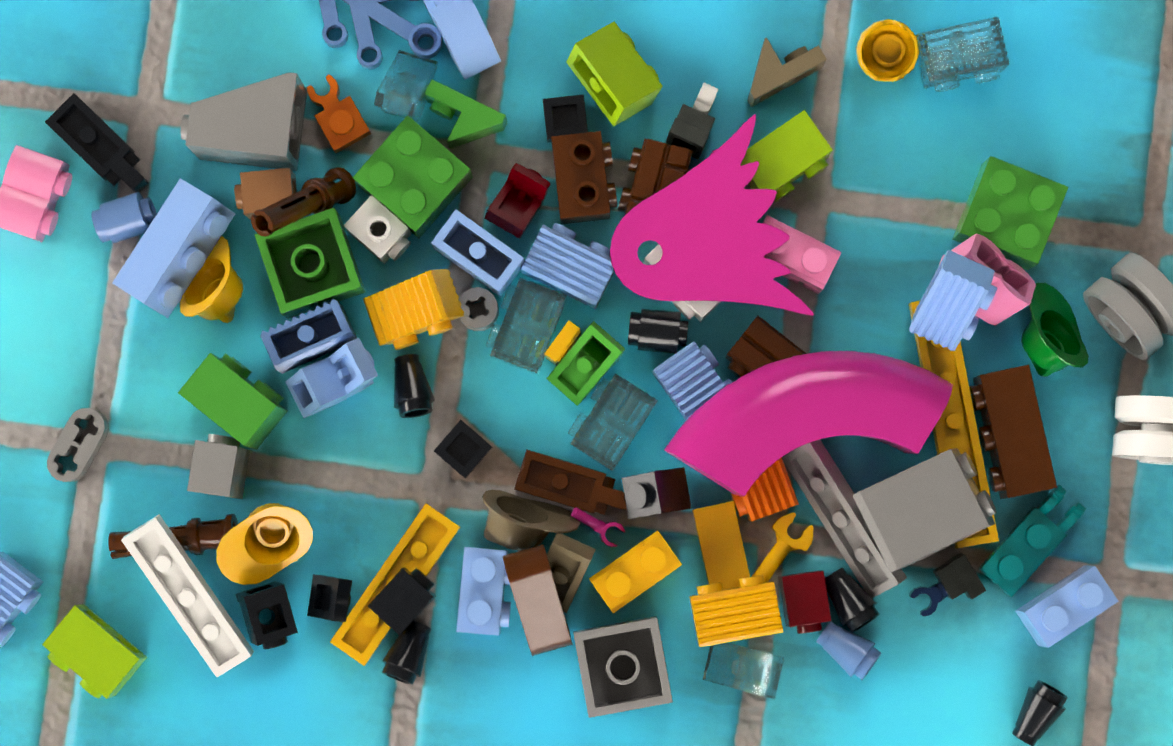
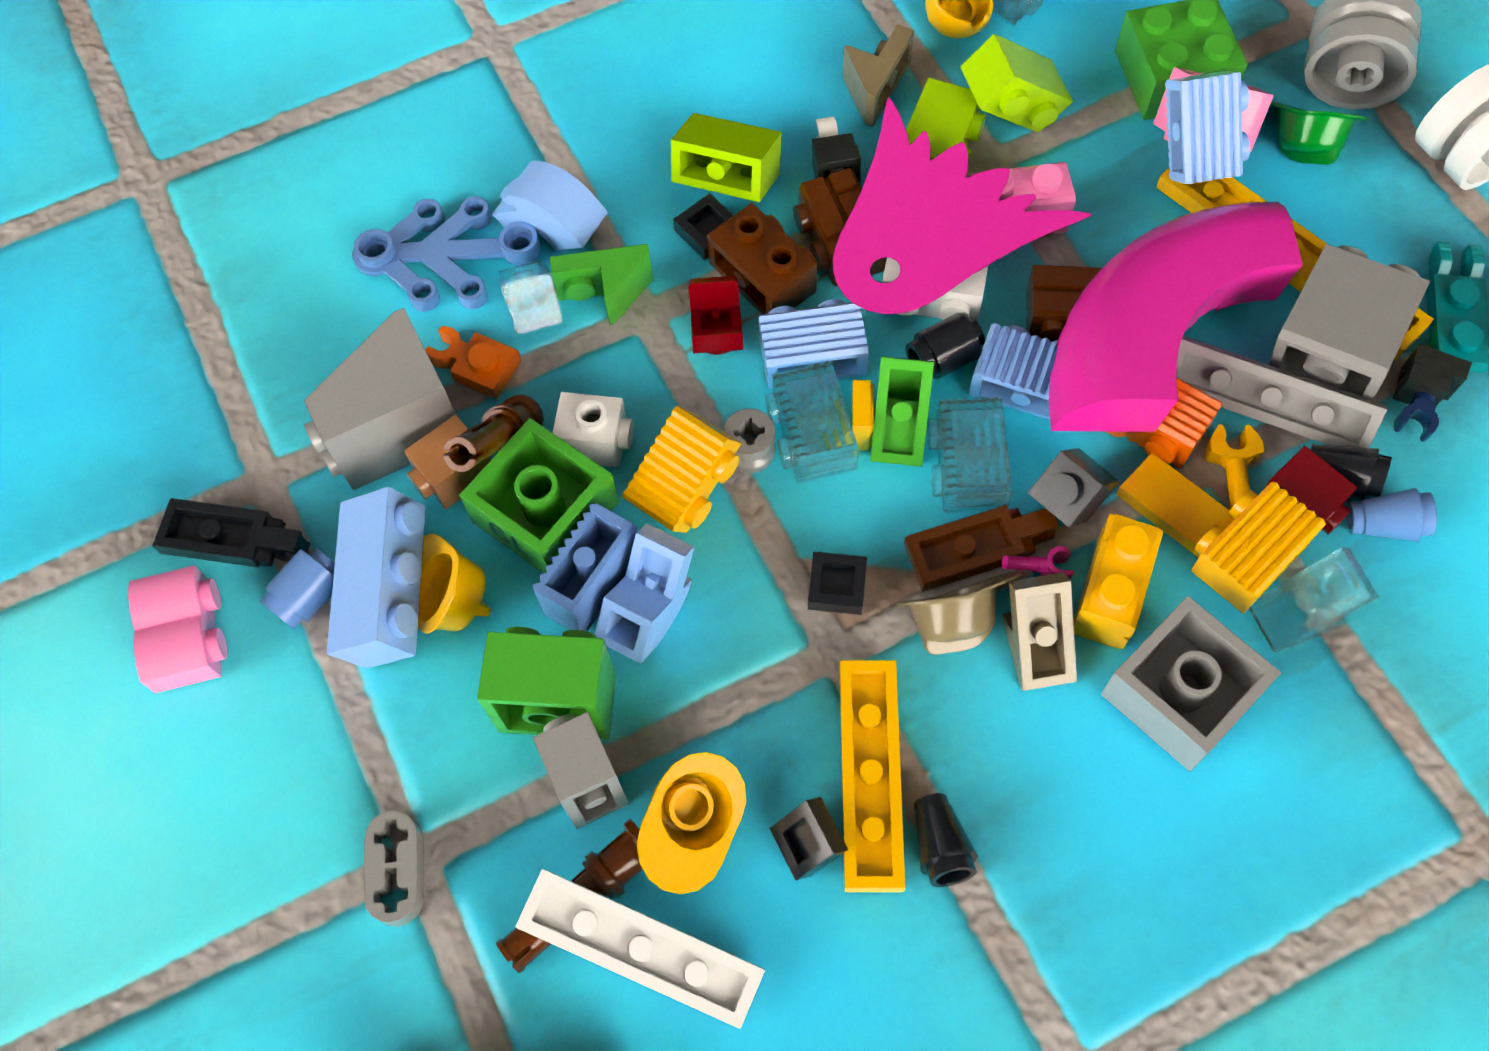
camera: 30 degrees left, 20 degrees down
(282, 621) = (757, 890): black brick -> none
(403, 599) = (898, 771): black brick -> none
(411, 387) = (738, 559): black cone -> none
(413, 176) = (592, 351): bright green brick -> none
(478, 253) = (711, 378): light blue brick -> none
(482, 592) = (974, 709): light blue brick -> none
(537, 600) = (1044, 670): beam -> none
(862, 162) = (1016, 84): none -> lime brick
(1013, 432) = (1356, 214): reddish brown brick -> none

